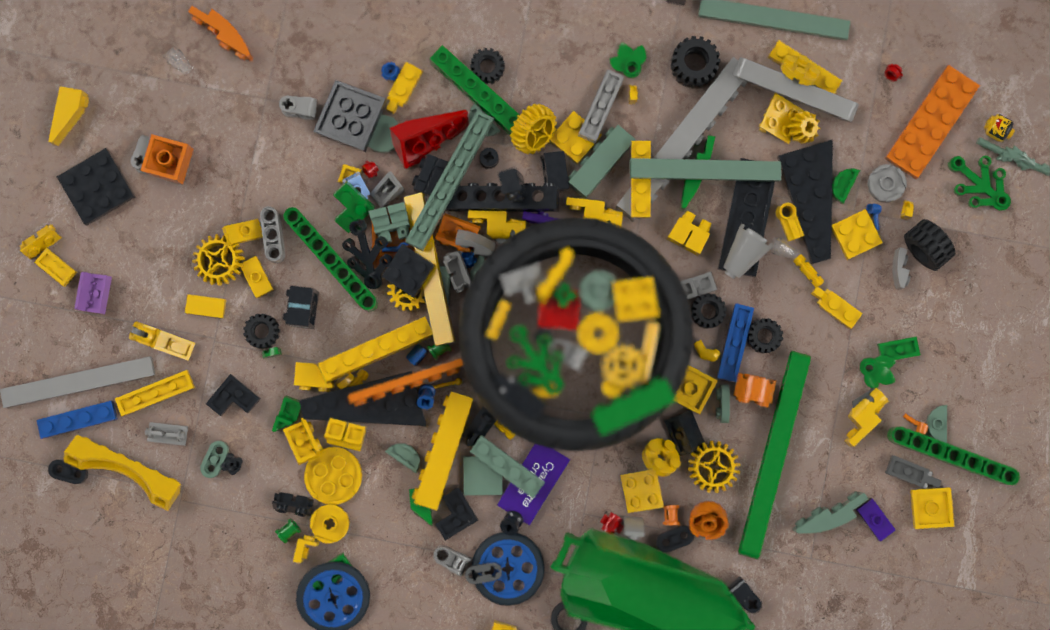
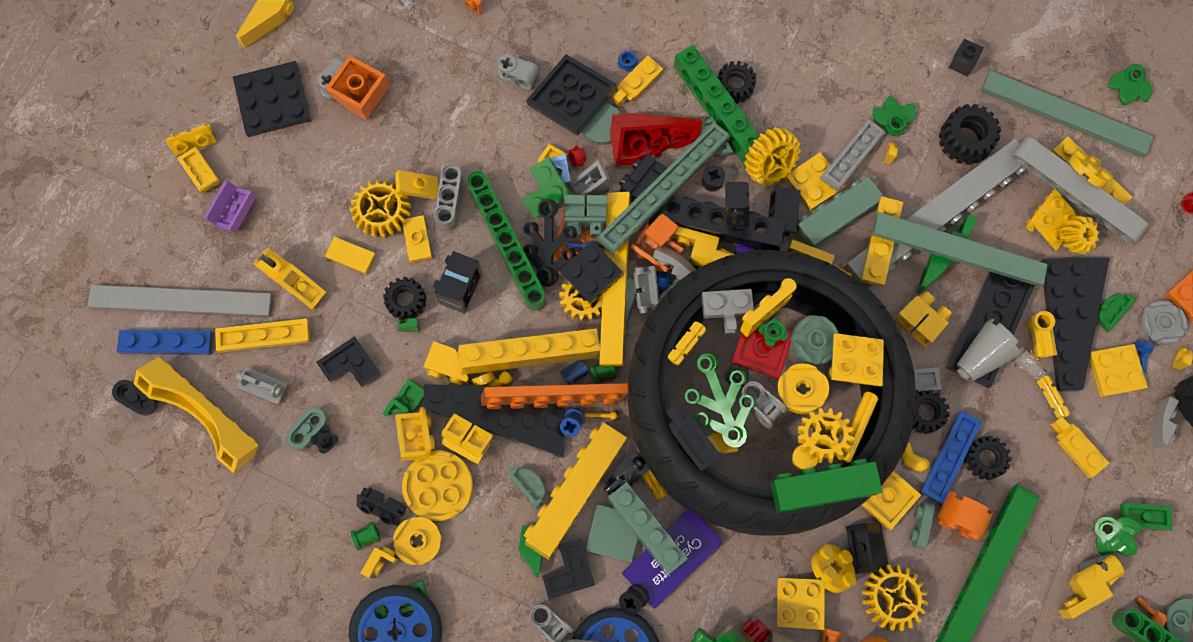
camera: 10 degrees right, 10 degrees down
(457, 219) = (661, 230): none -> orange slope

